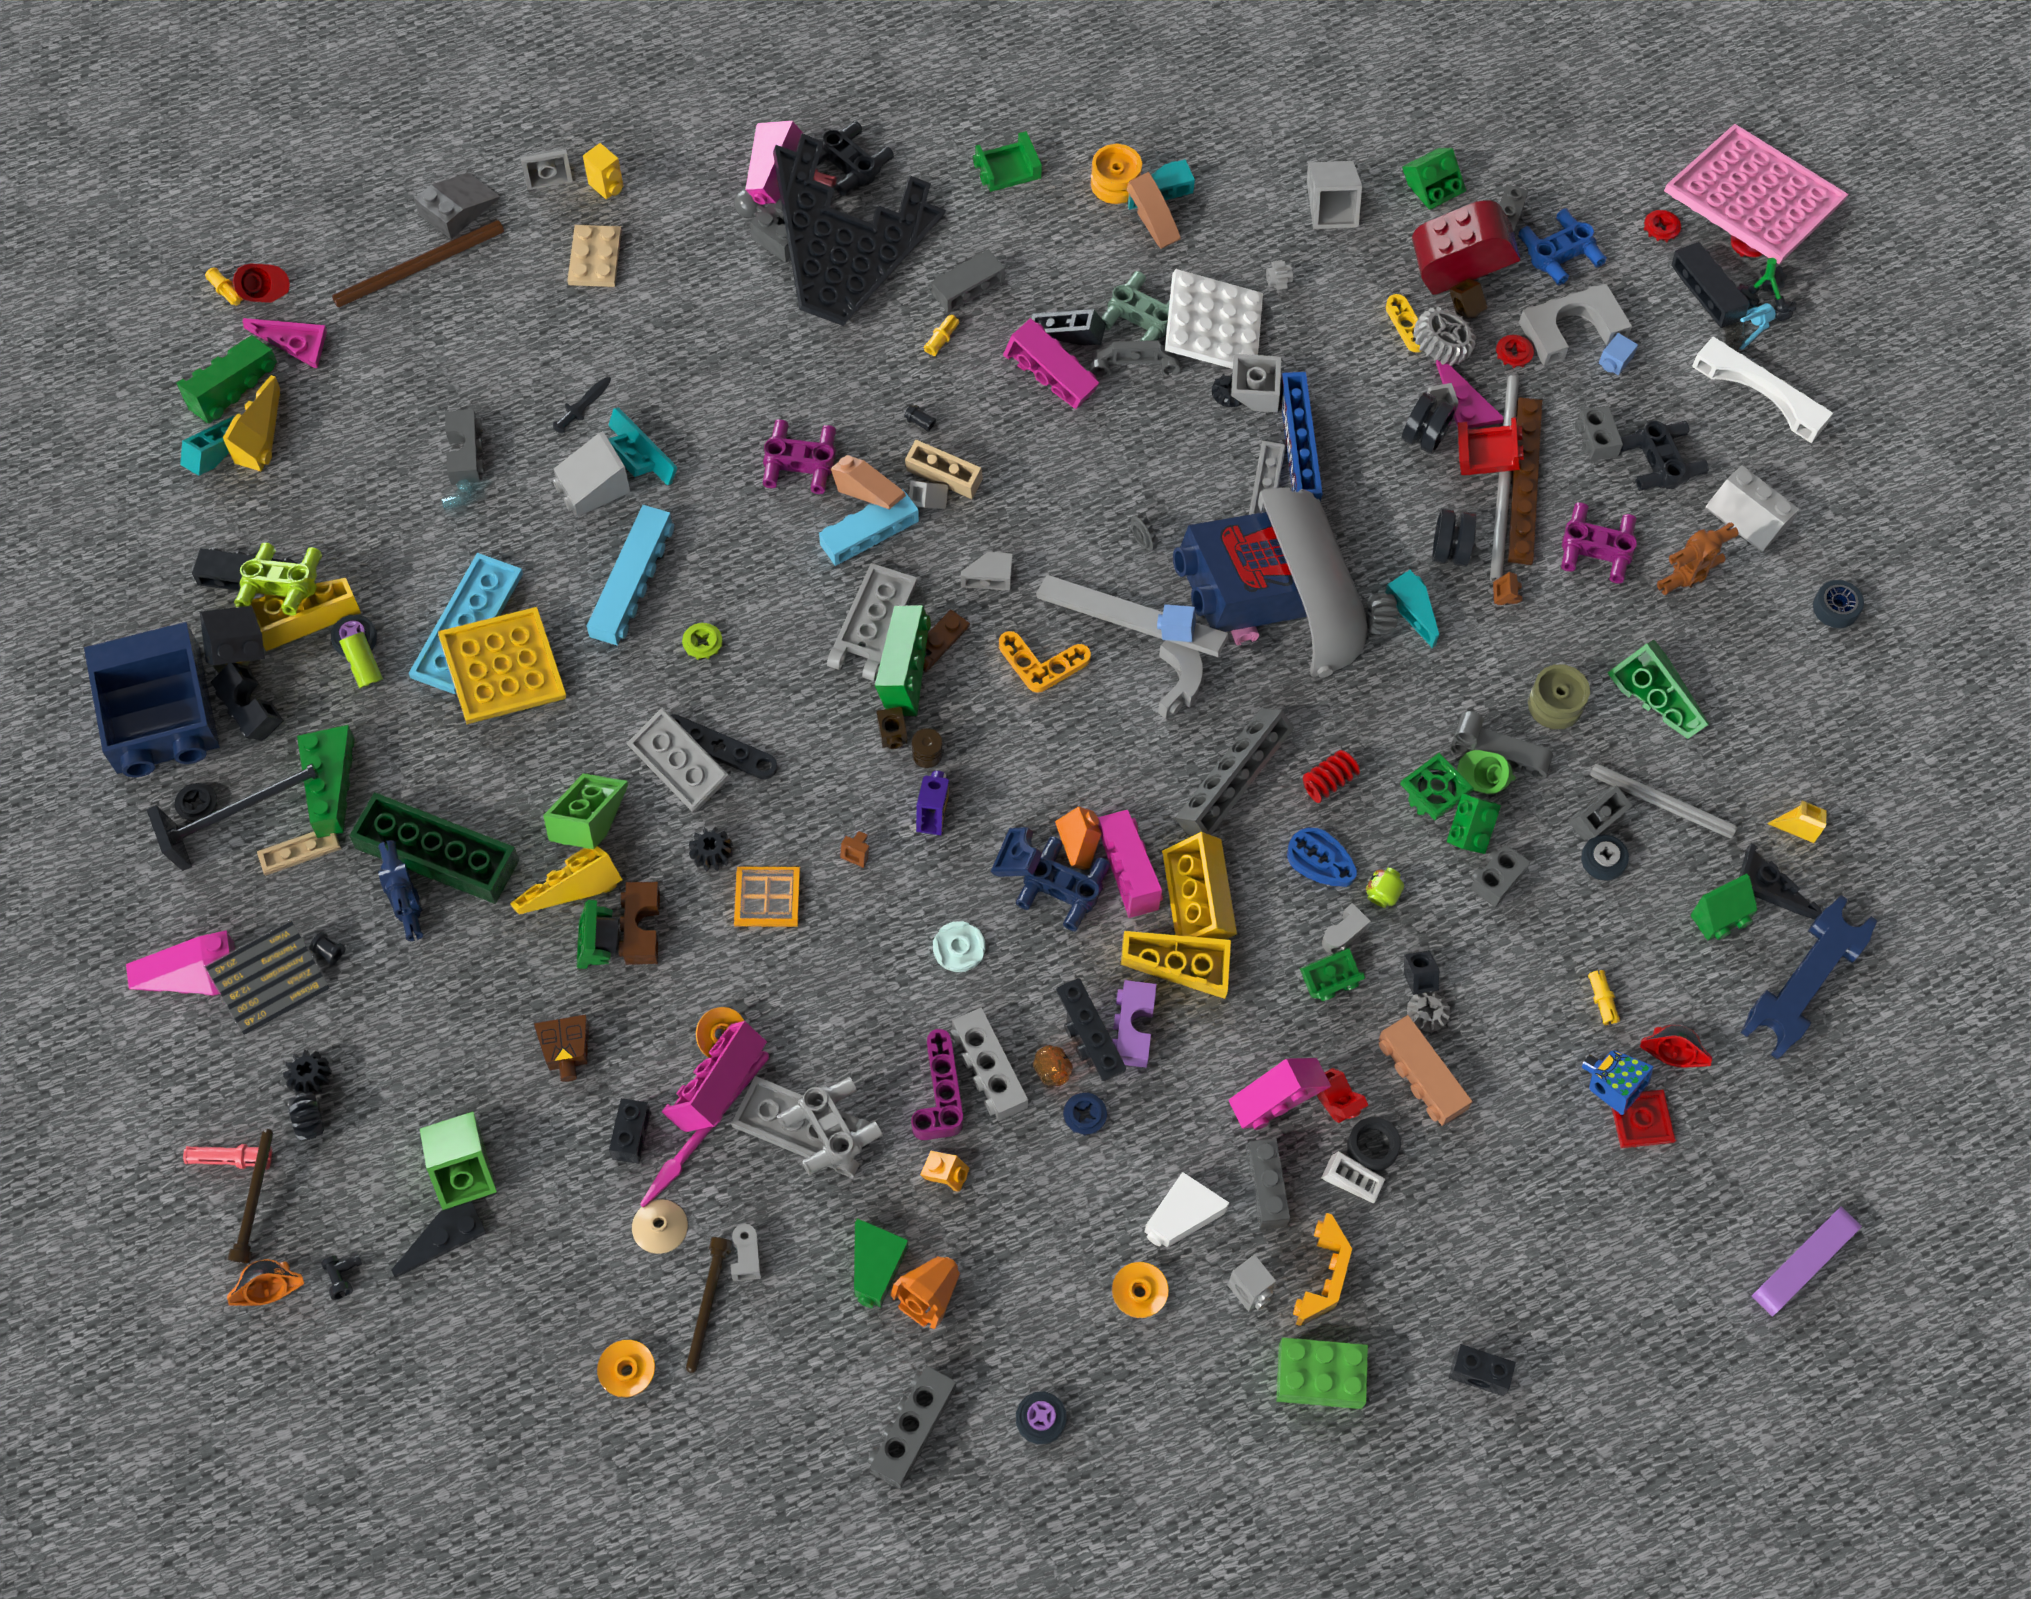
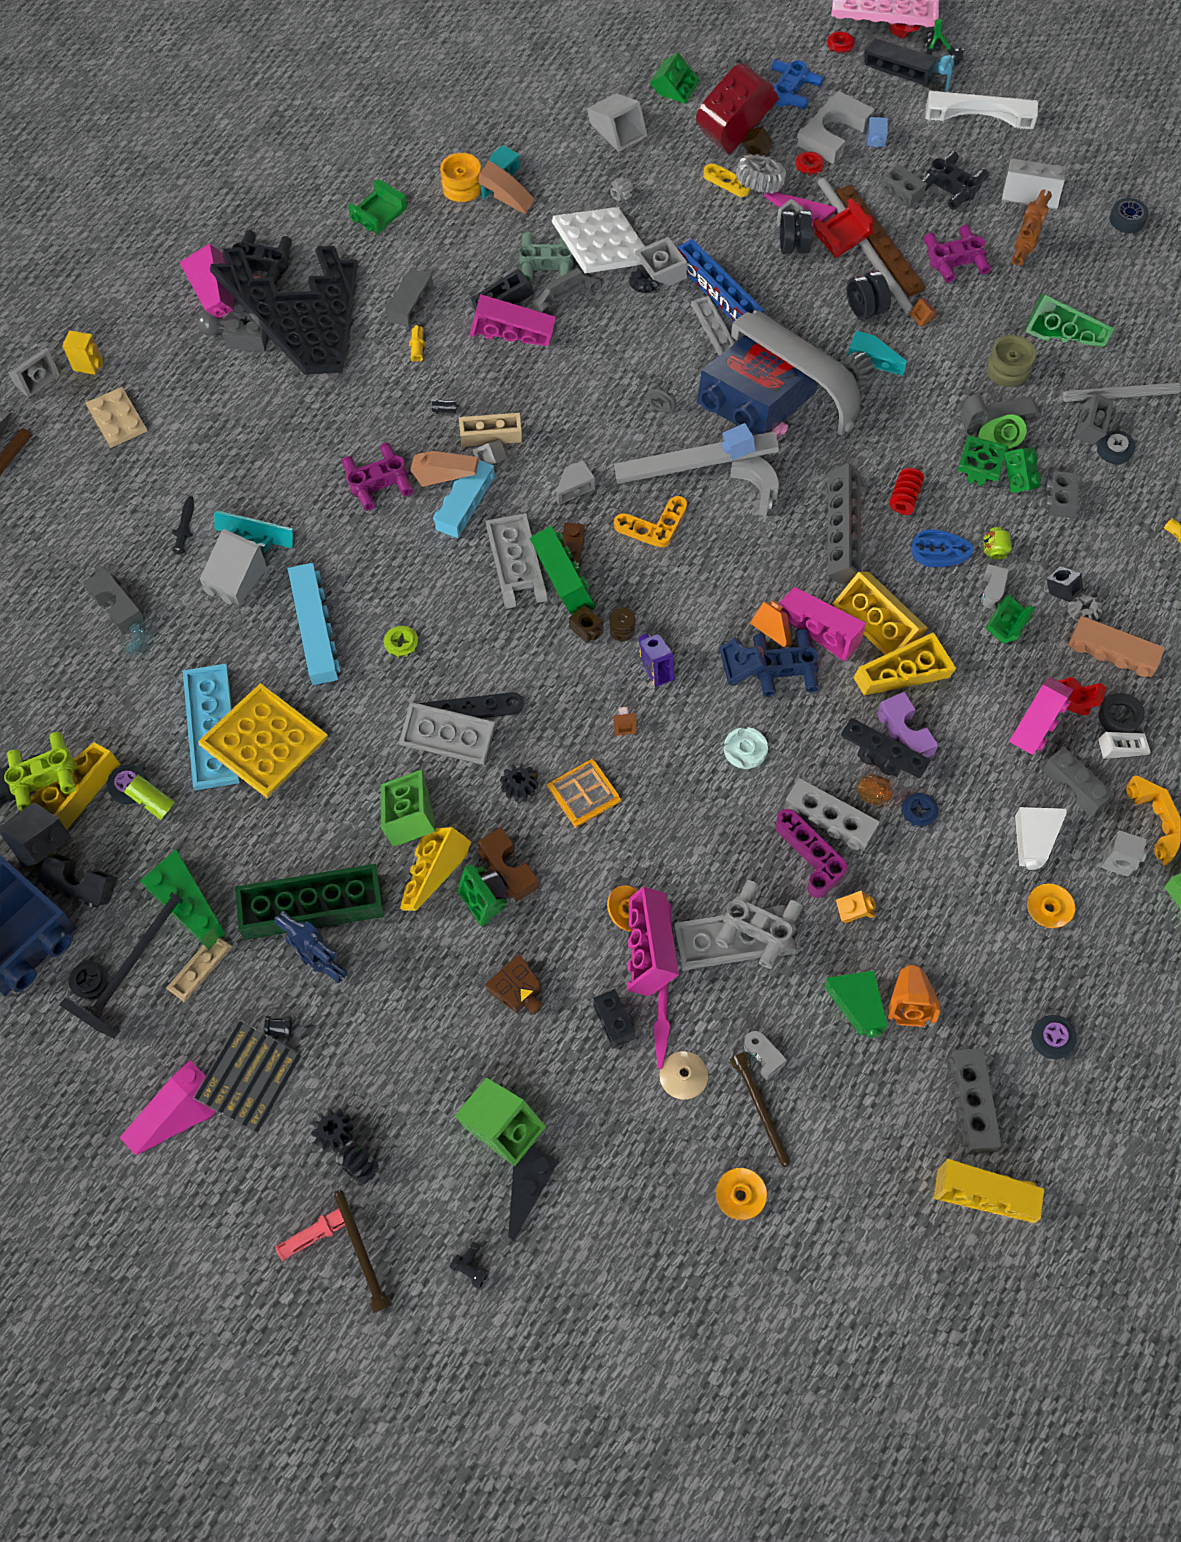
camera: 30 degrees left, 0 degrees up
(264, 1283) = (417, 1310): orange hat -> none
(856, 1518) = (988, 1191): none -> yellow wedge

